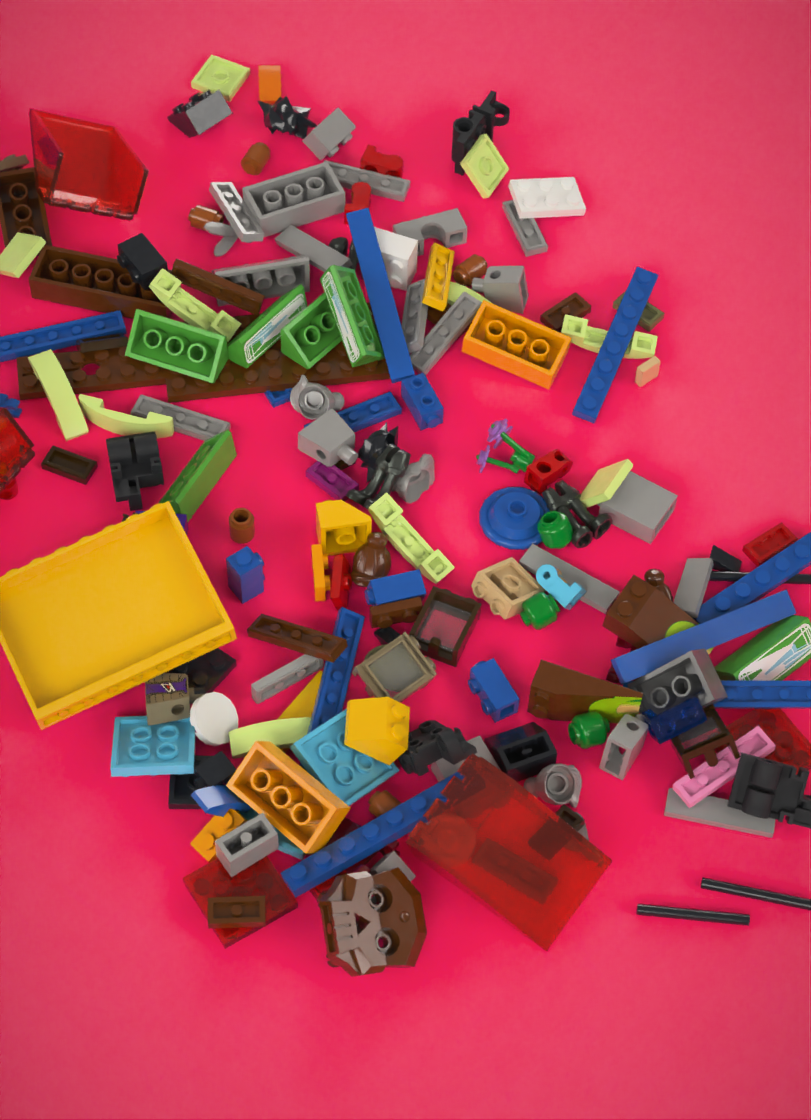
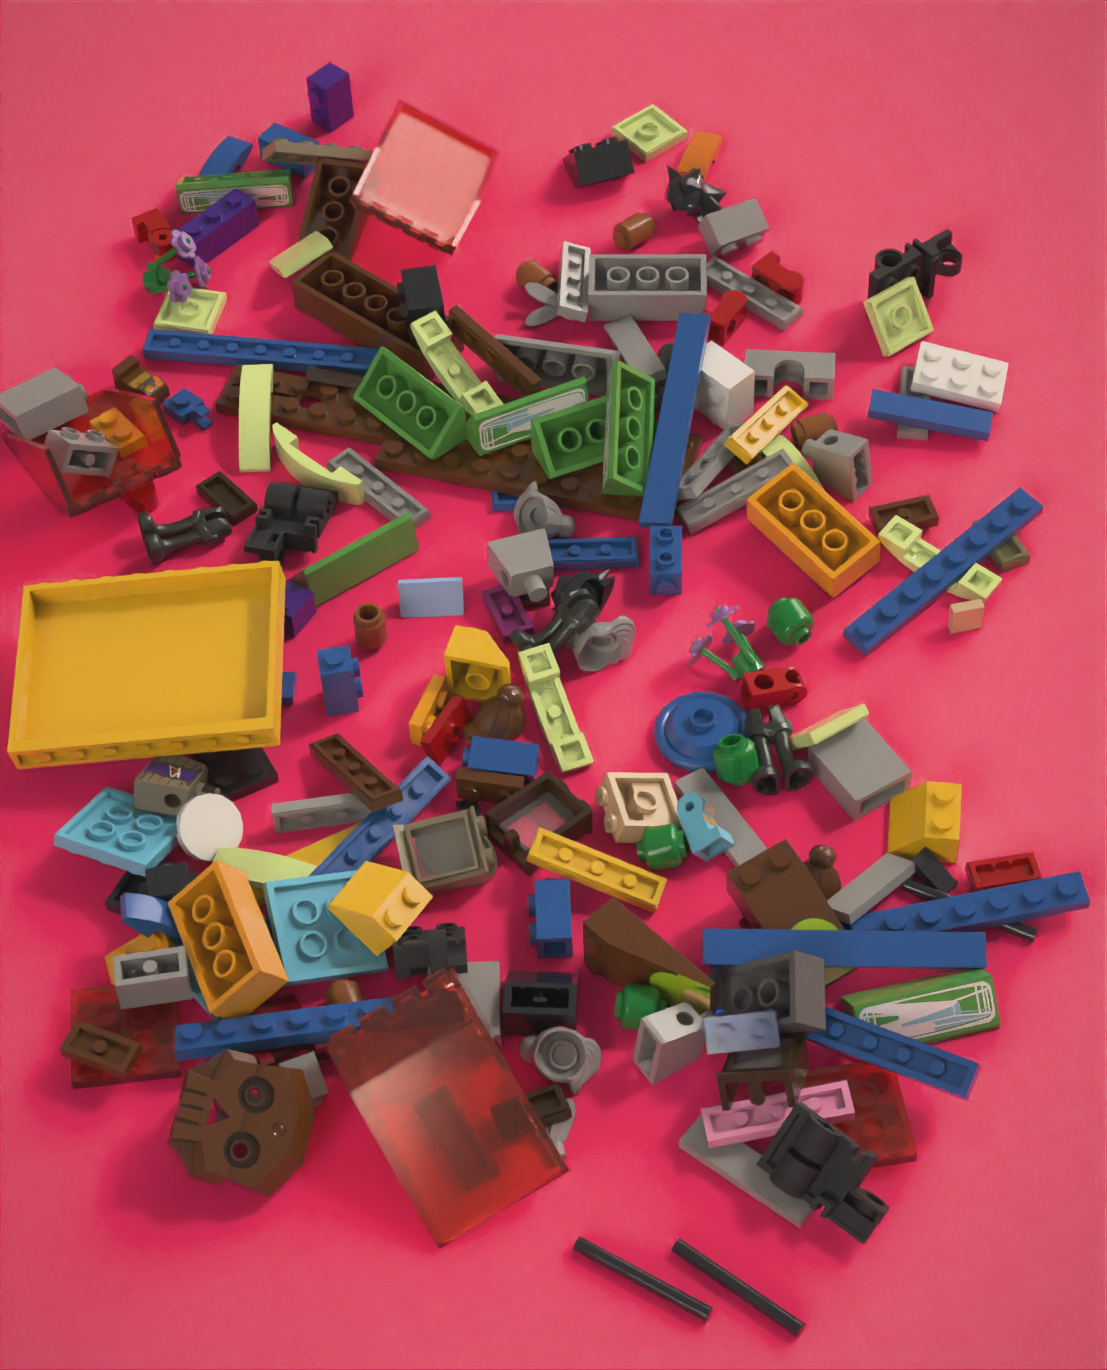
camera: 30 degrees right, 5 degrees down
(70, 493) = (201, 527): none -> pearl dark grey piece
(270, 488) = (431, 597): none -> light blue slope
(505, 644) = (596, 870): none -> yellow tile
(534, 417) = (790, 621): none -> green head
(544, 232) = (930, 414): none -> blue tile
(702, 525) = (928, 818): none -> yellow slope

